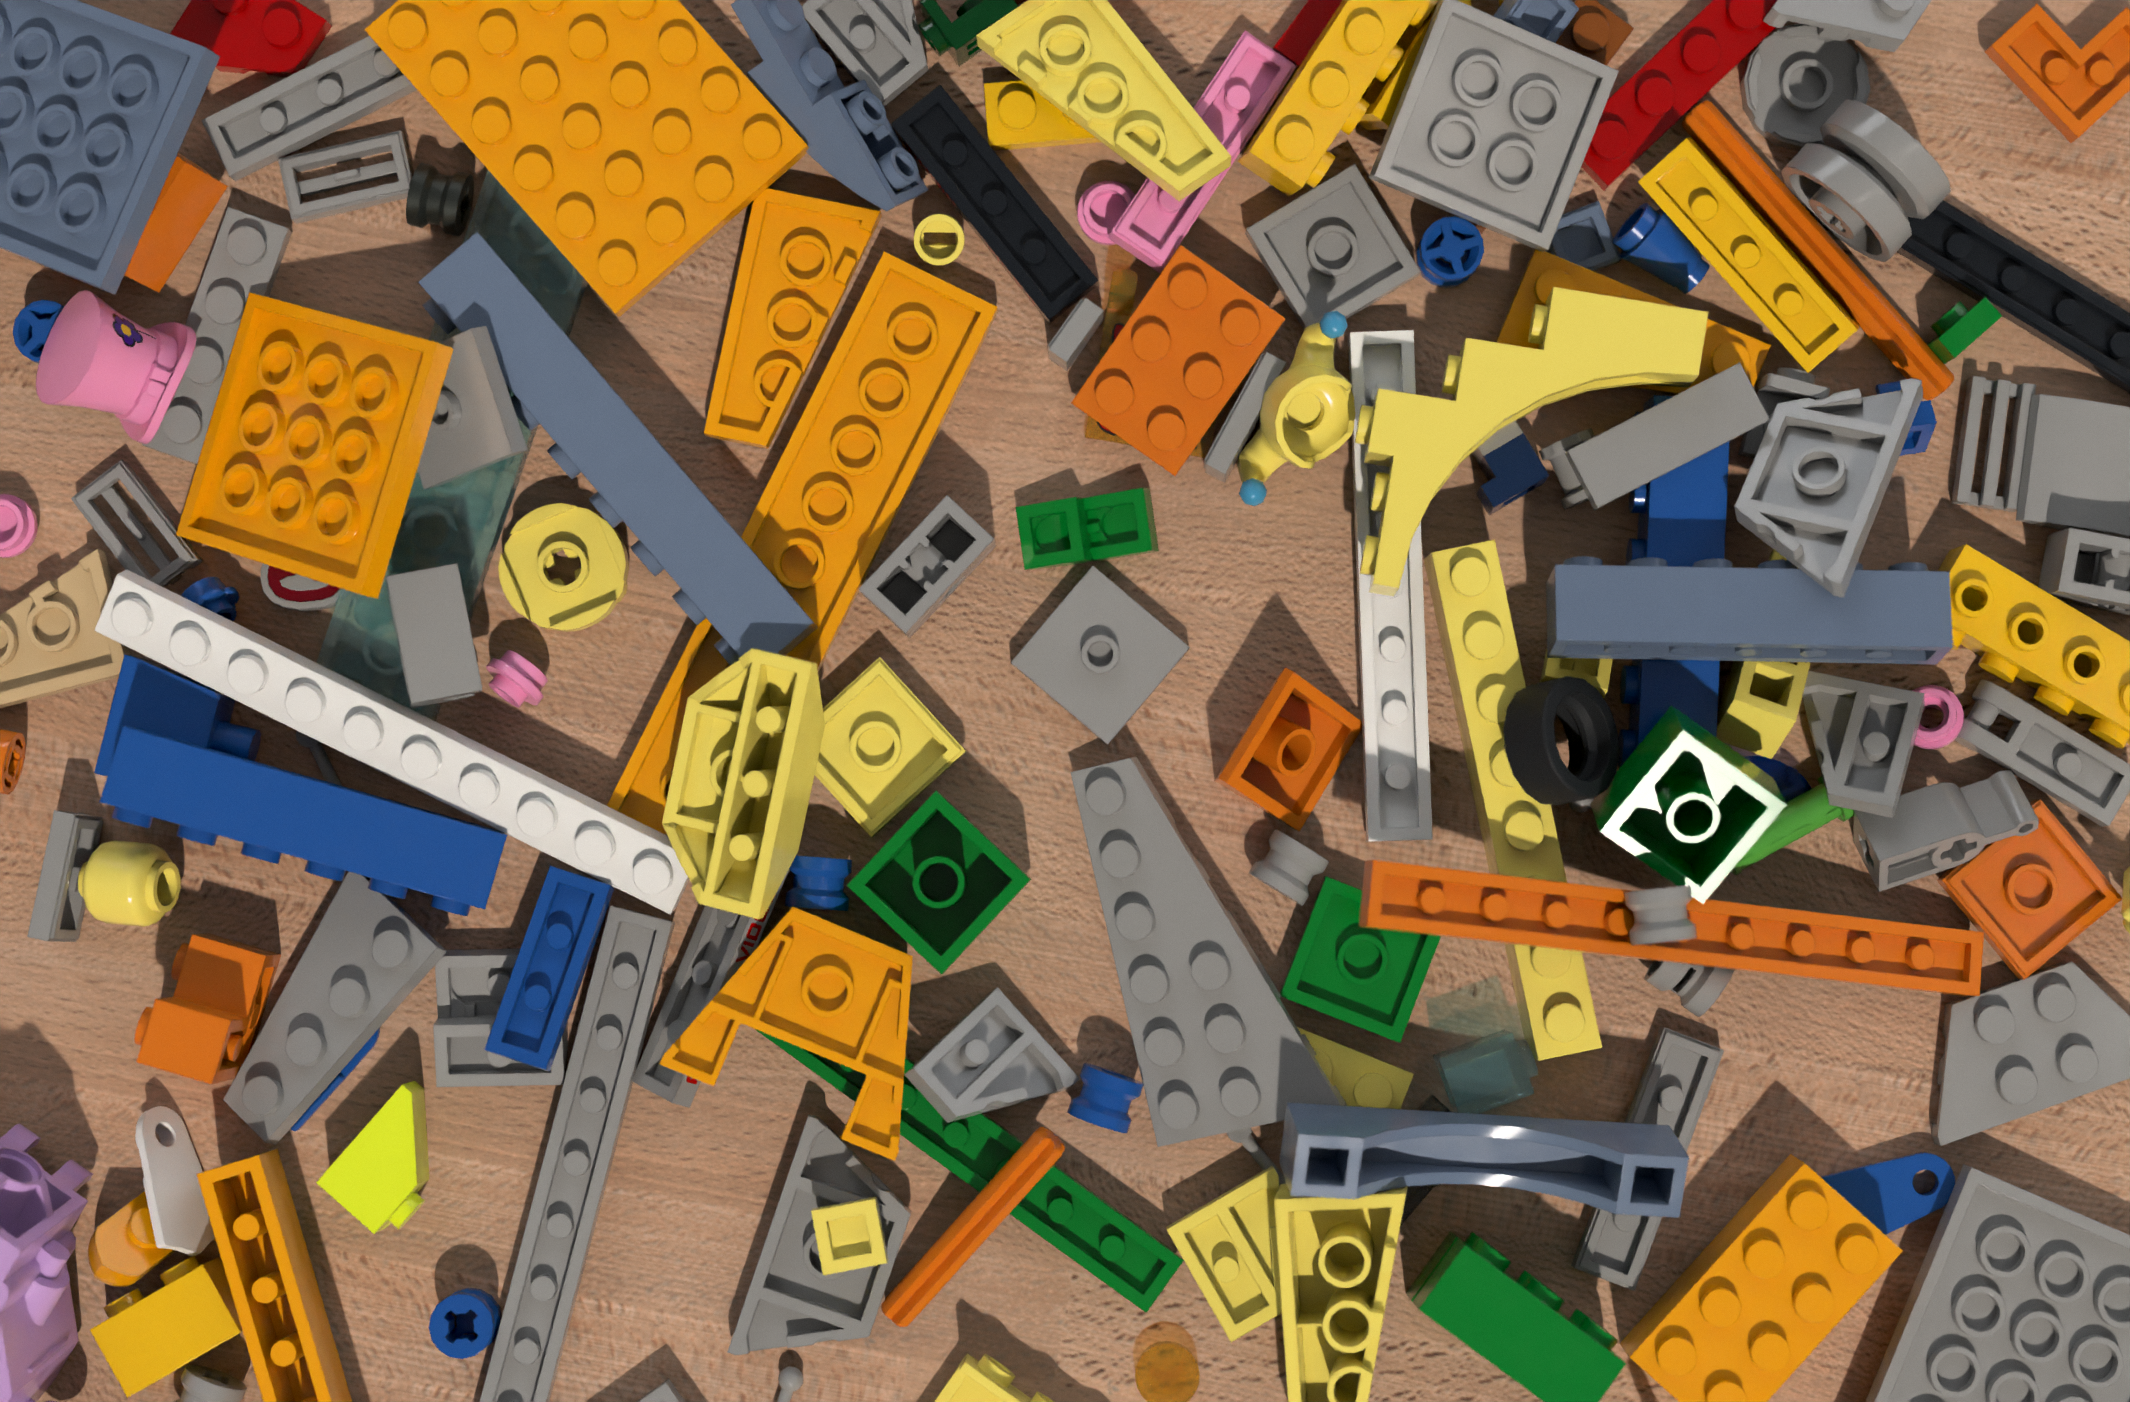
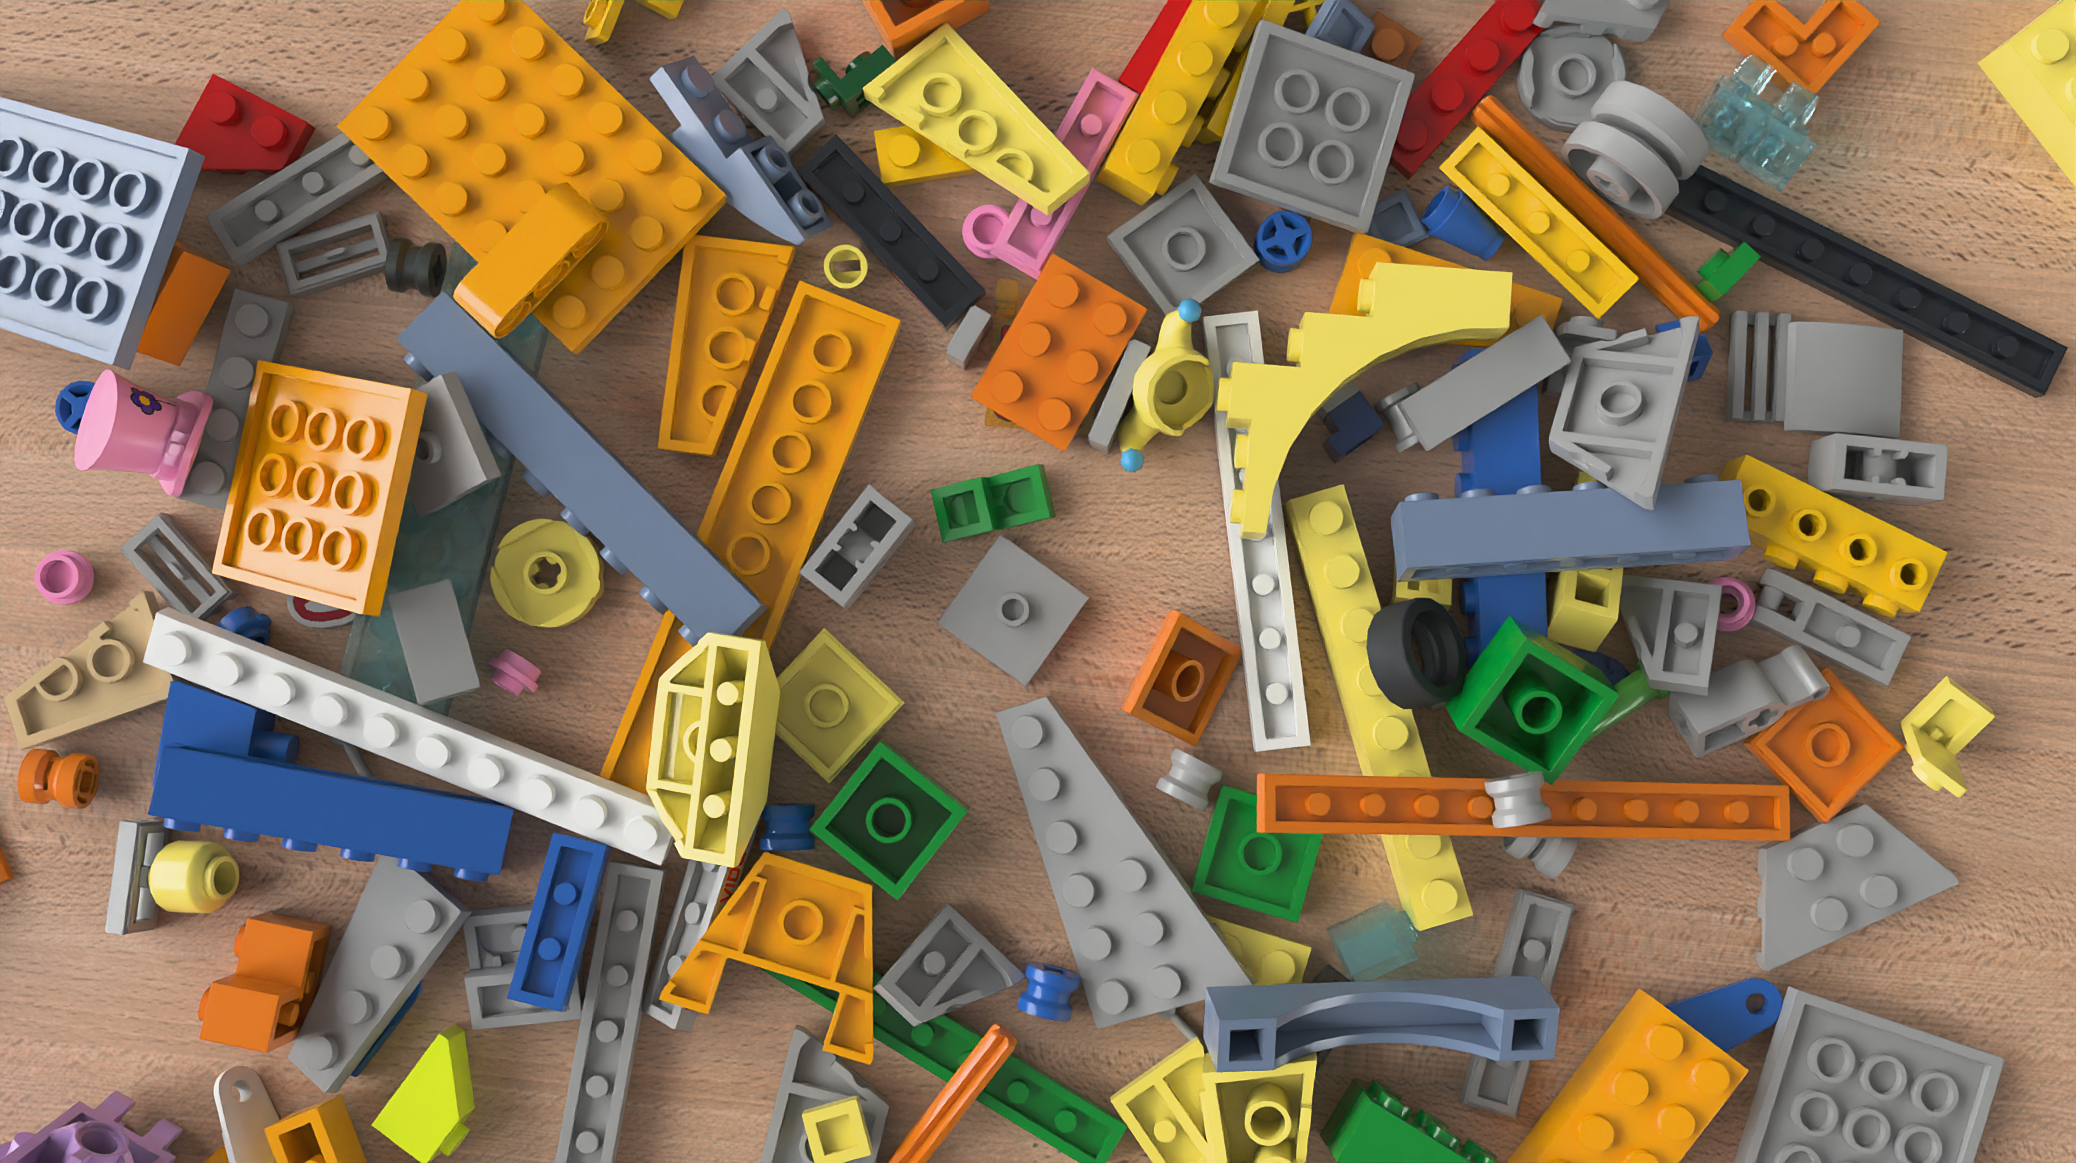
camera: 10 degrees left, 0 degrees up
(580, 205) = (531, 260): none -> light orange beam
(2001, 156) = (1766, 137): none -> clear light blue hips

